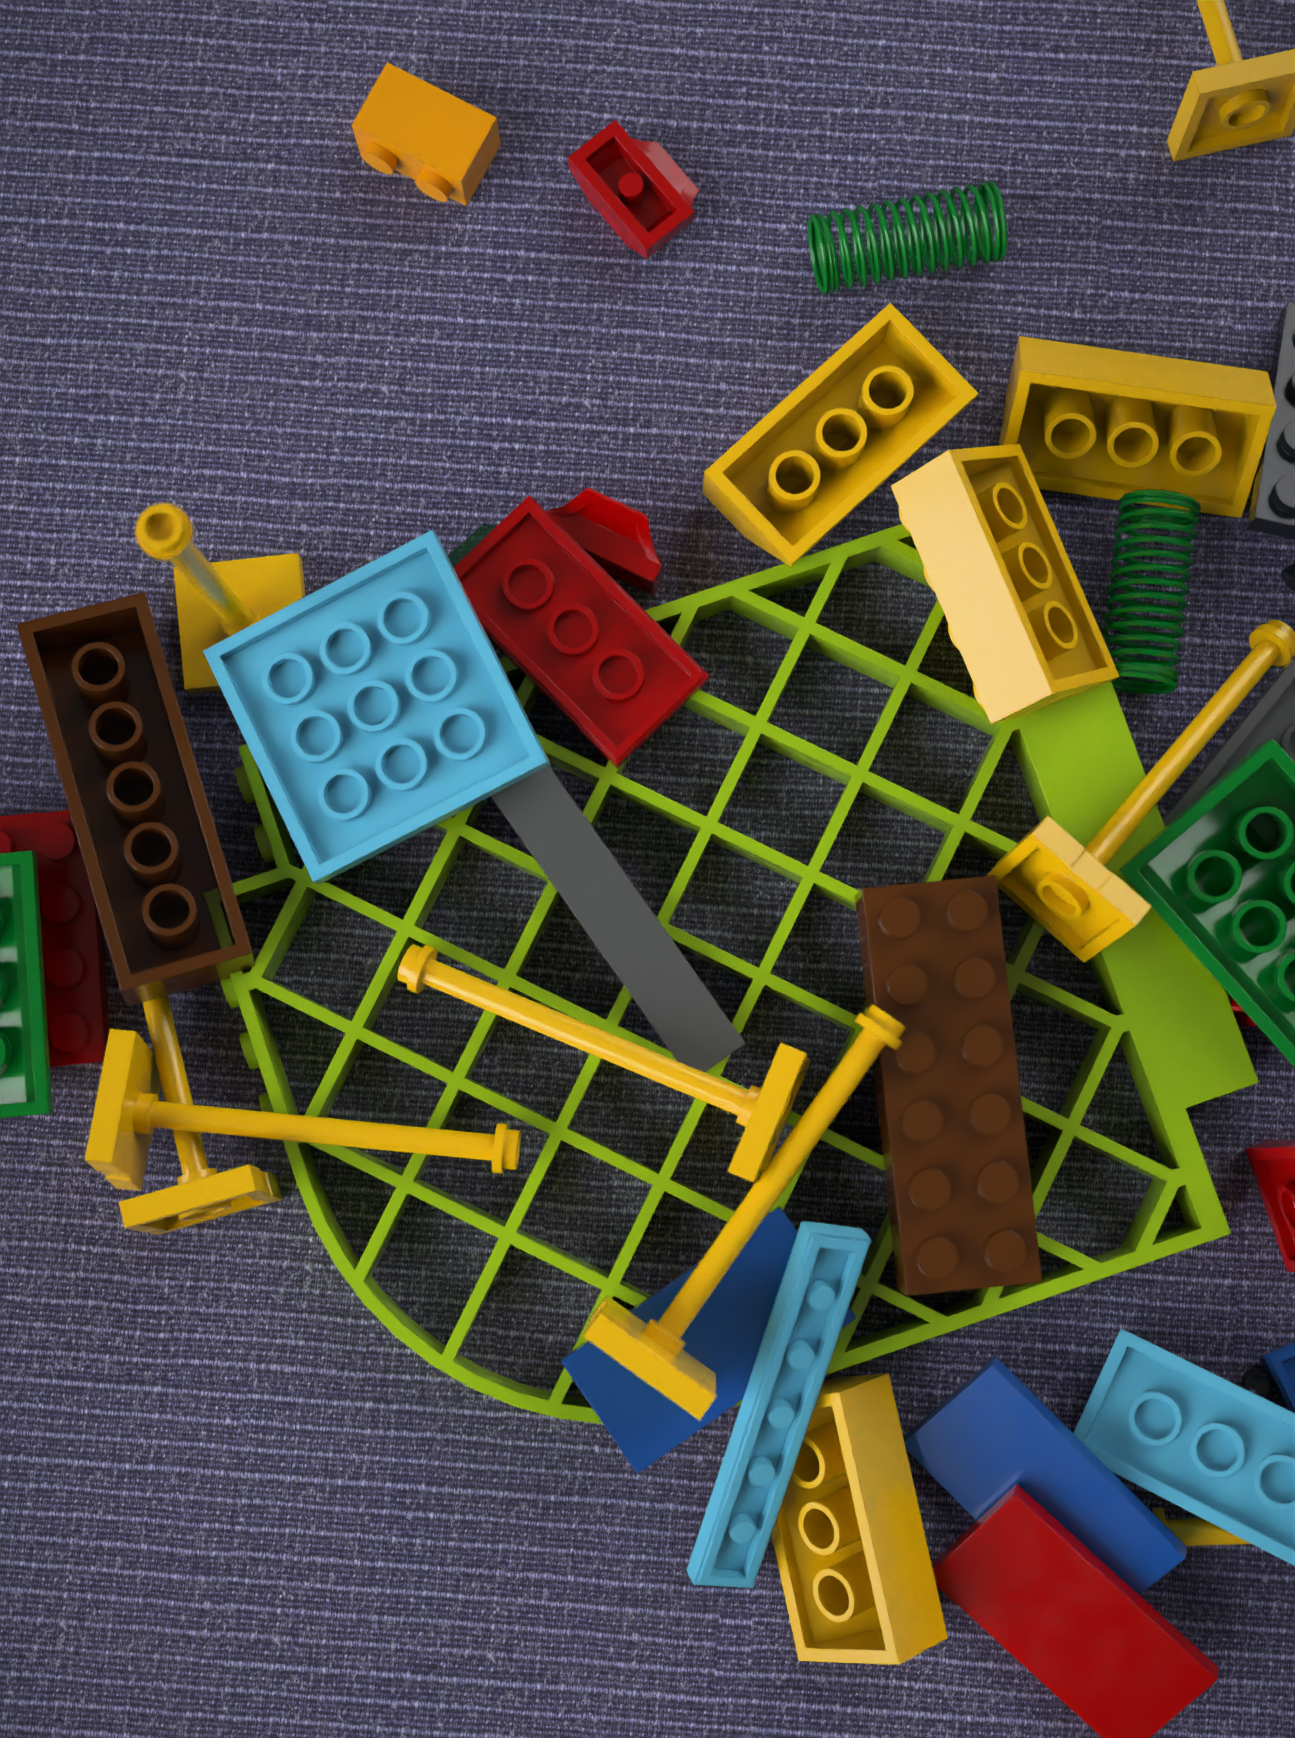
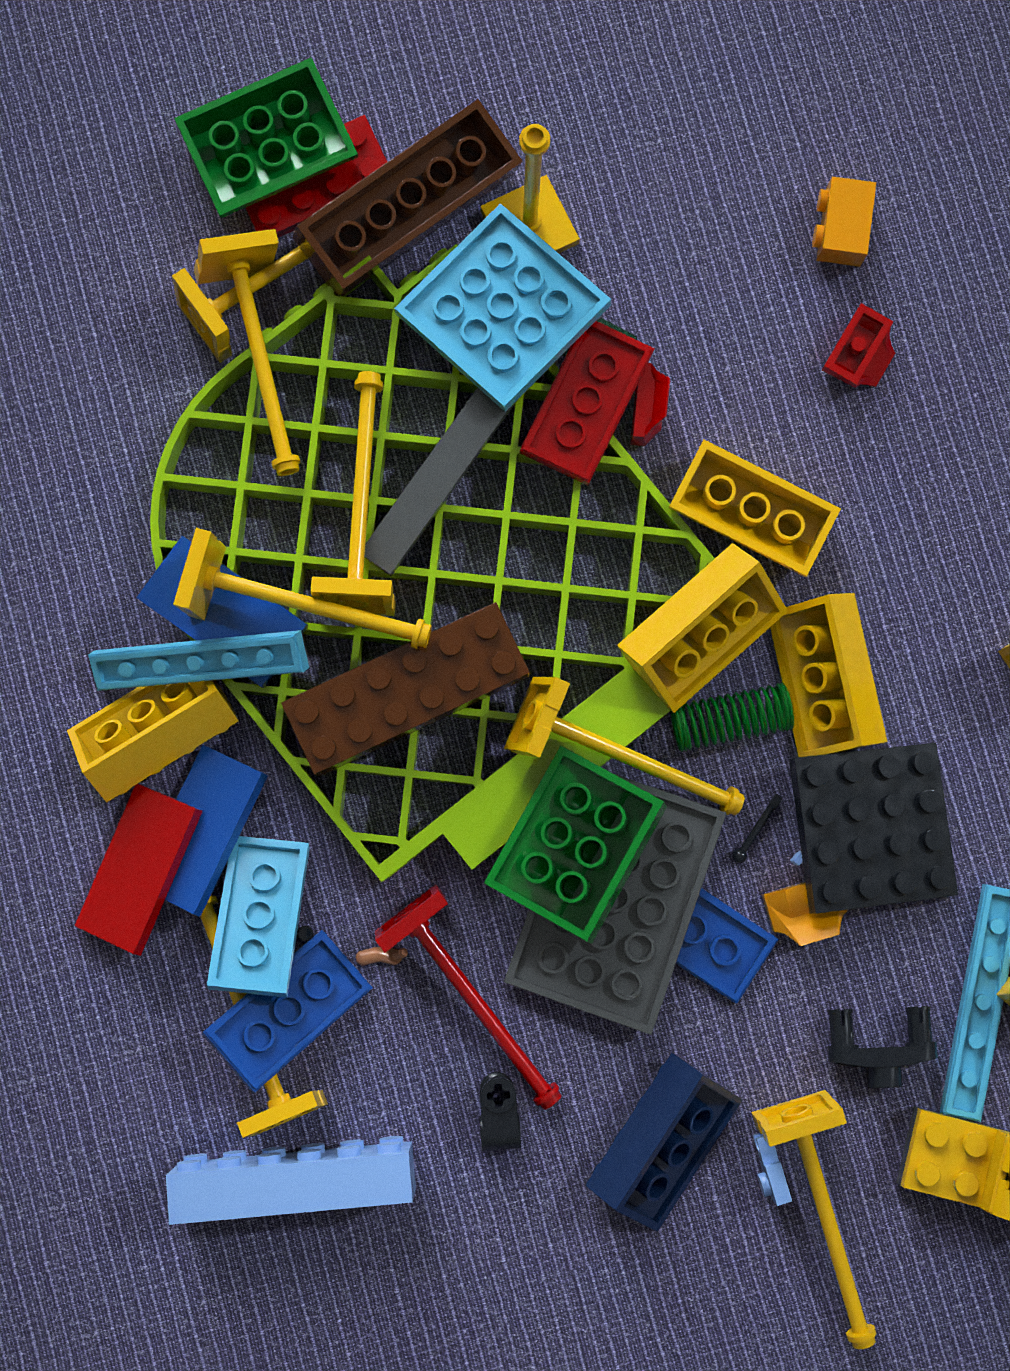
camera: 65 degrees right, 0 degrees up
(825, 259) = (900, 560): green piece -> none

